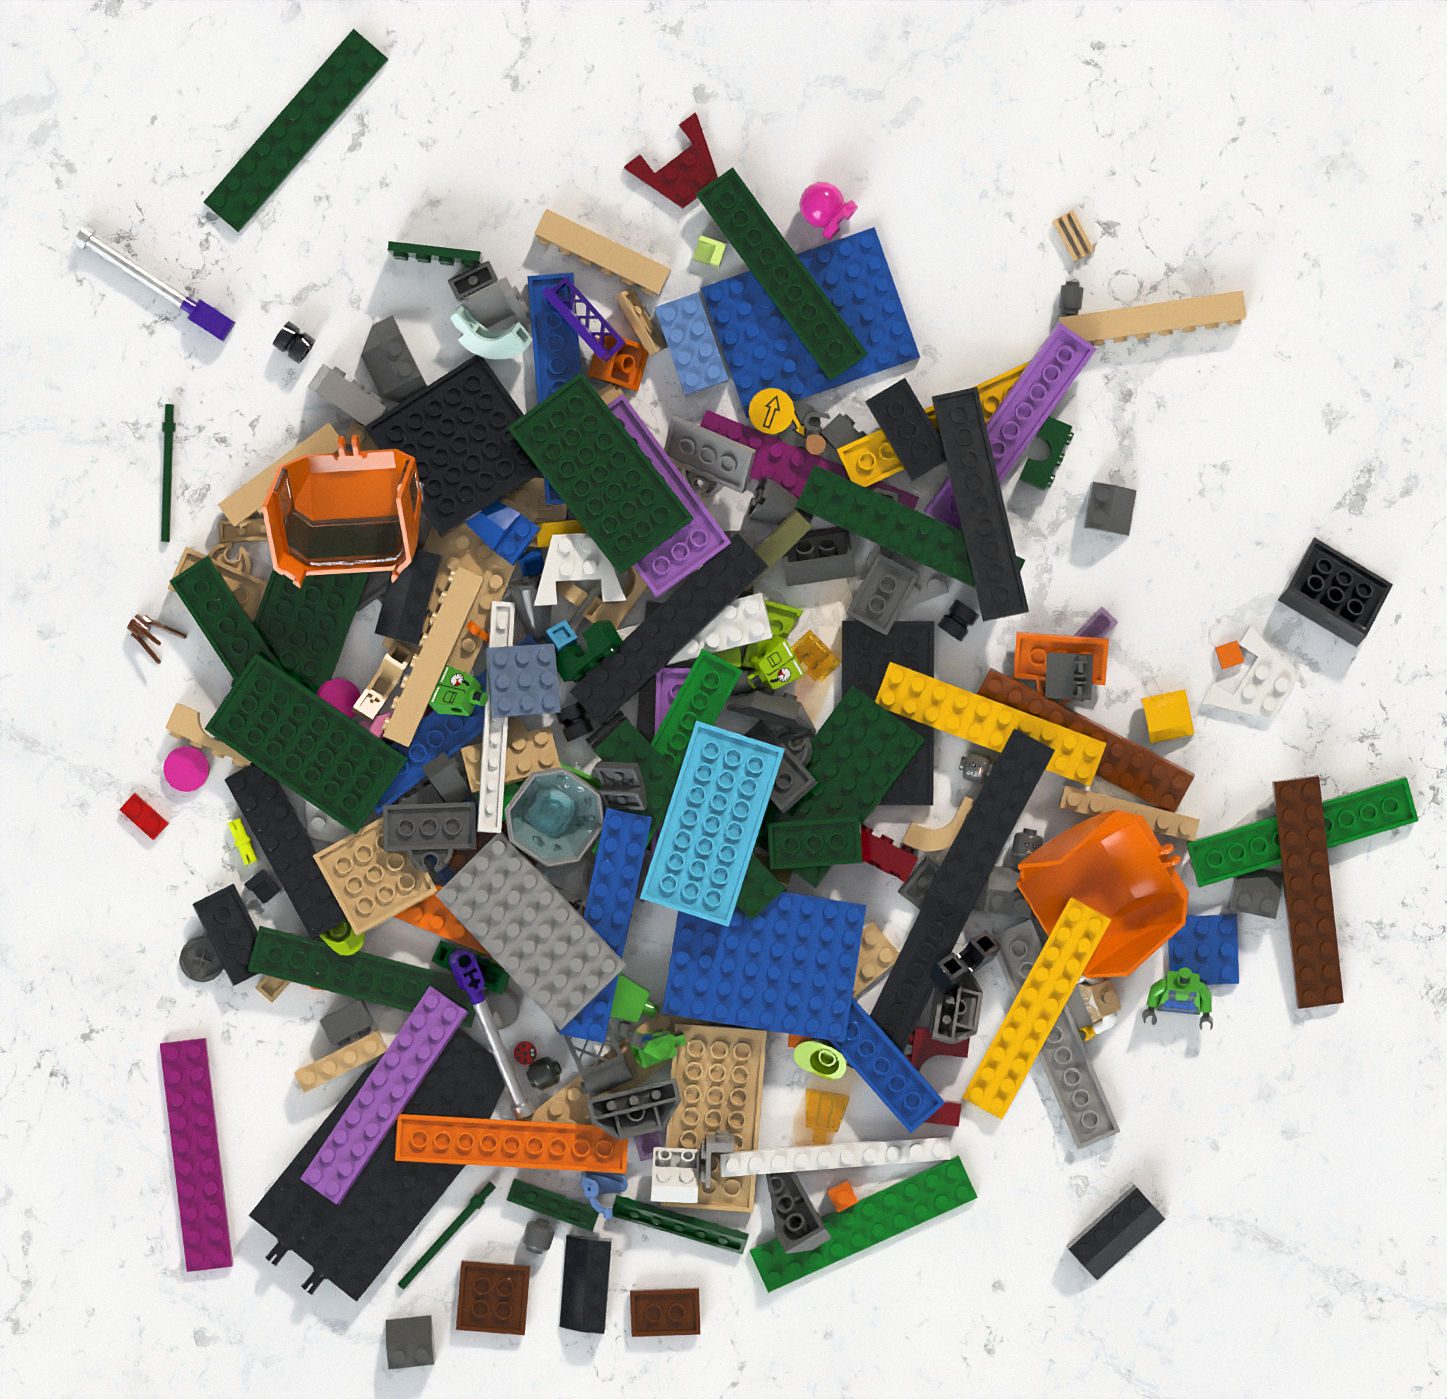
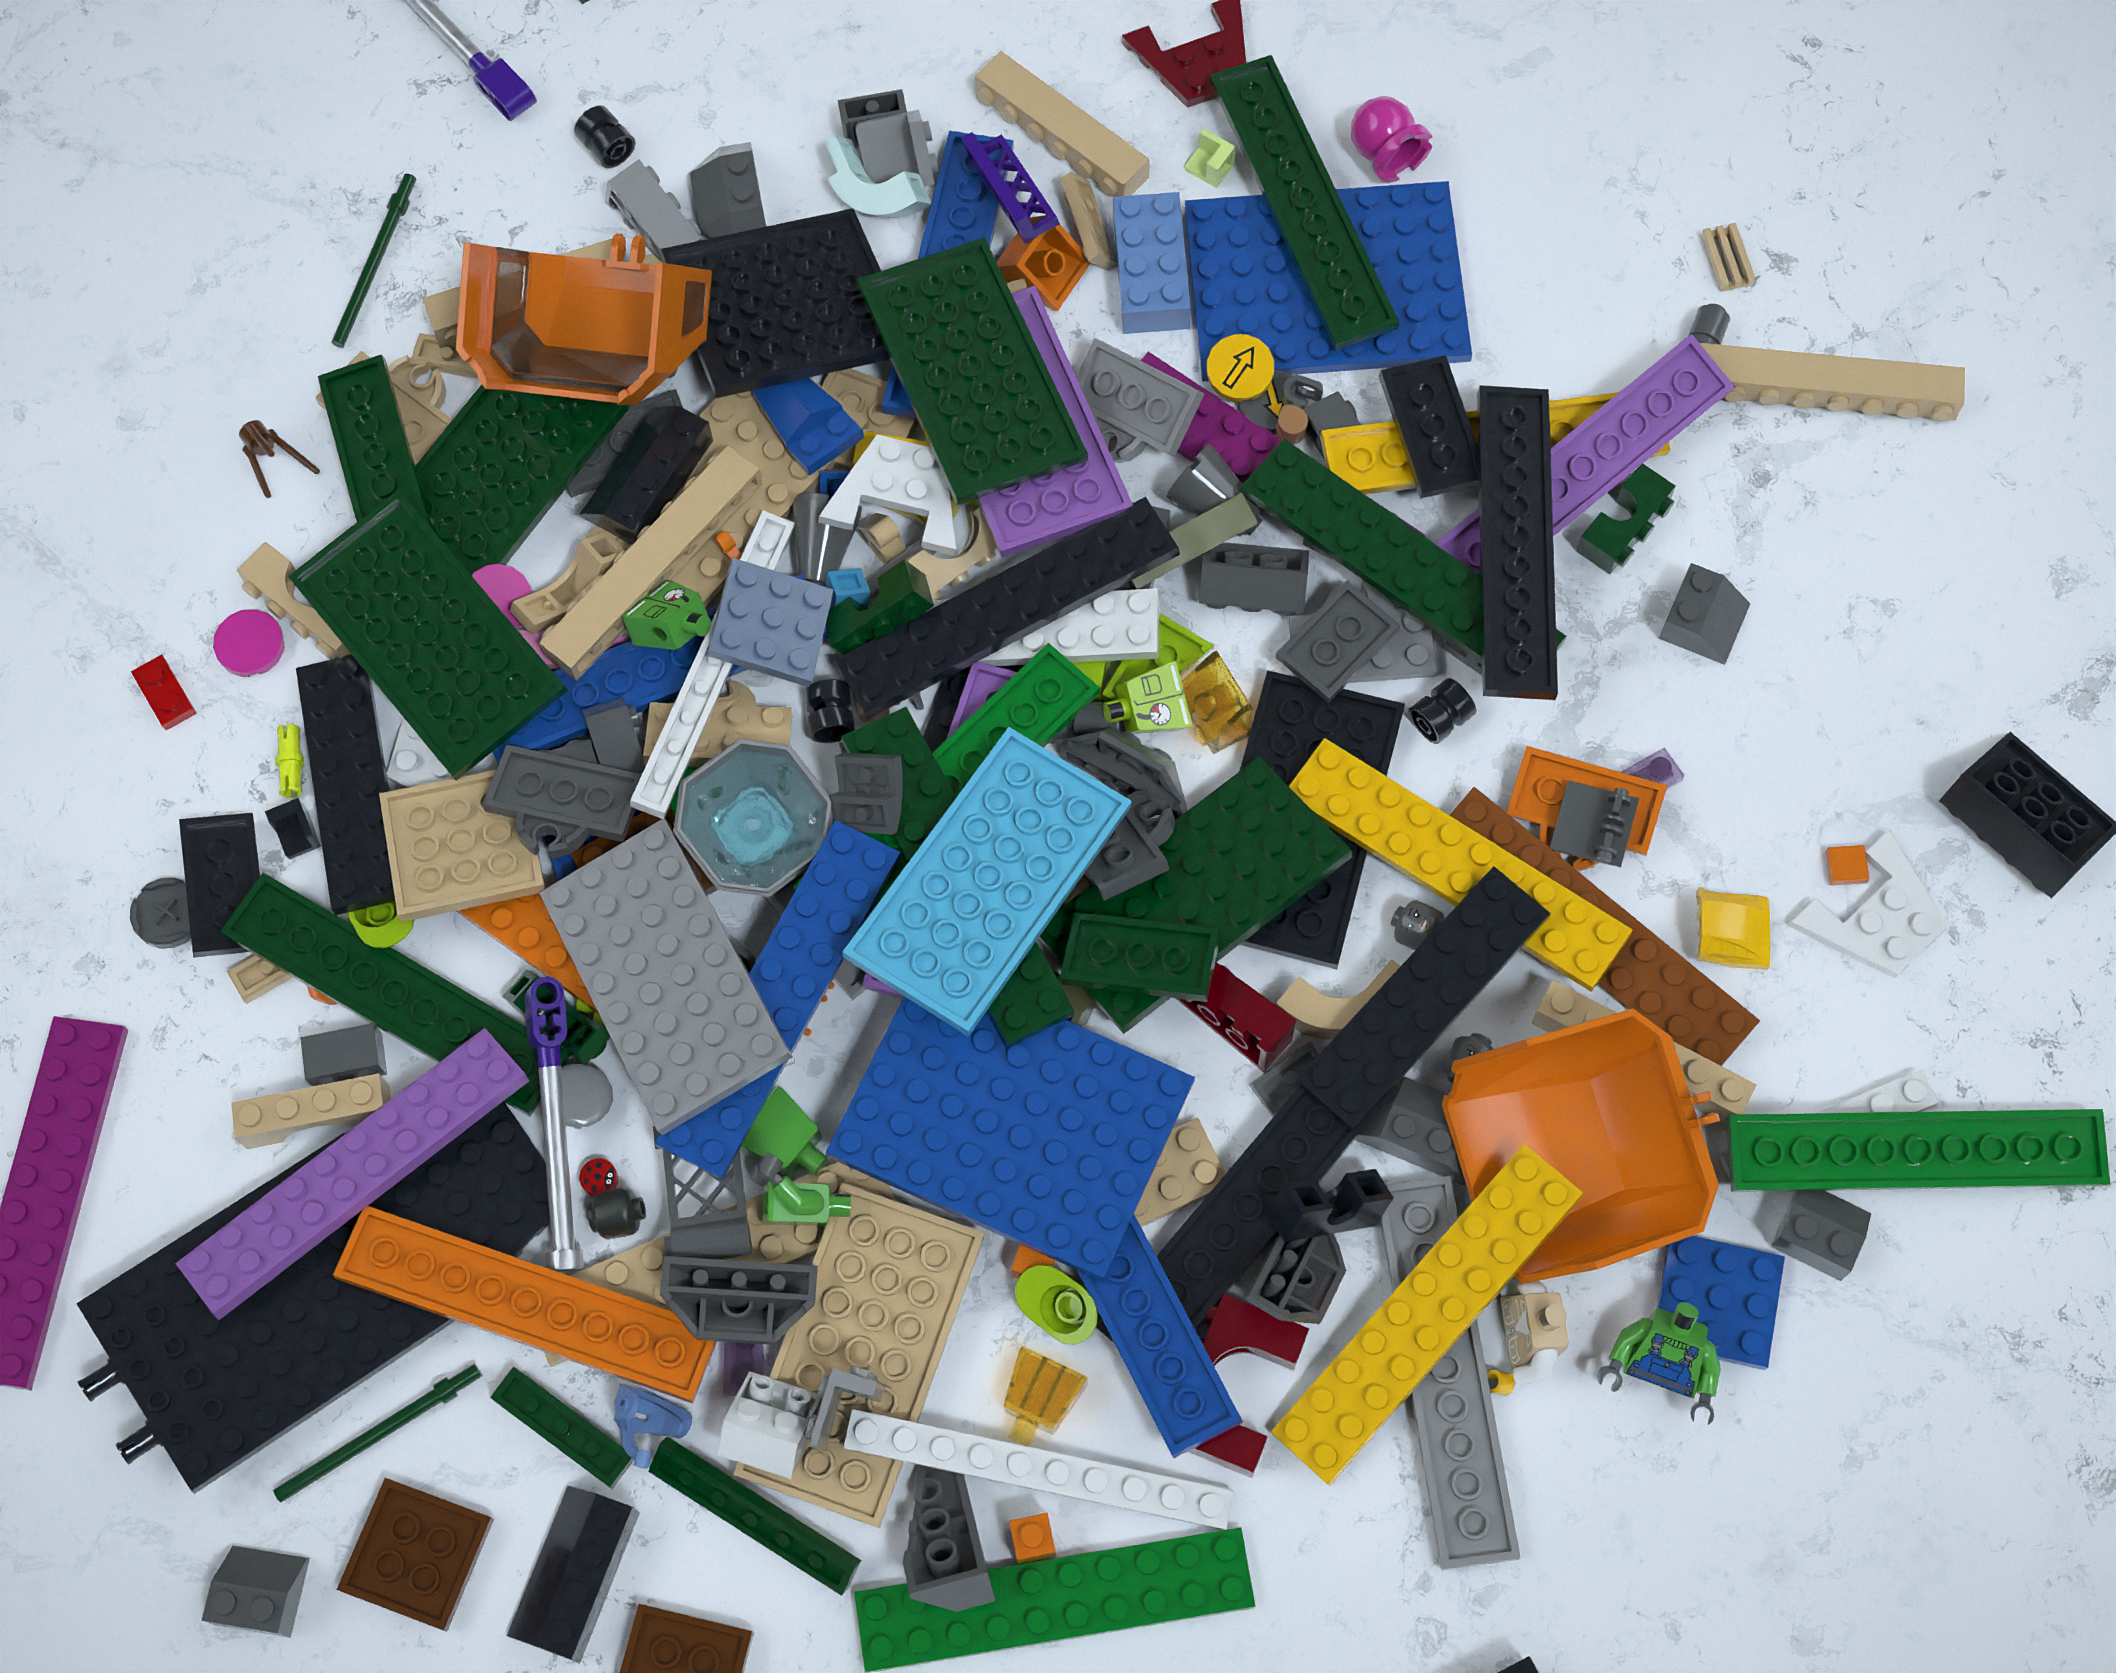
camera: 20 degrees right, 20 degrees down
(426, 253) = (827, 65): dark green plate -> none
(538, 1236) = (521, 1470): dark grey head -> none
(1307, 891) = (1910, 1249): reddish brown plate -> none

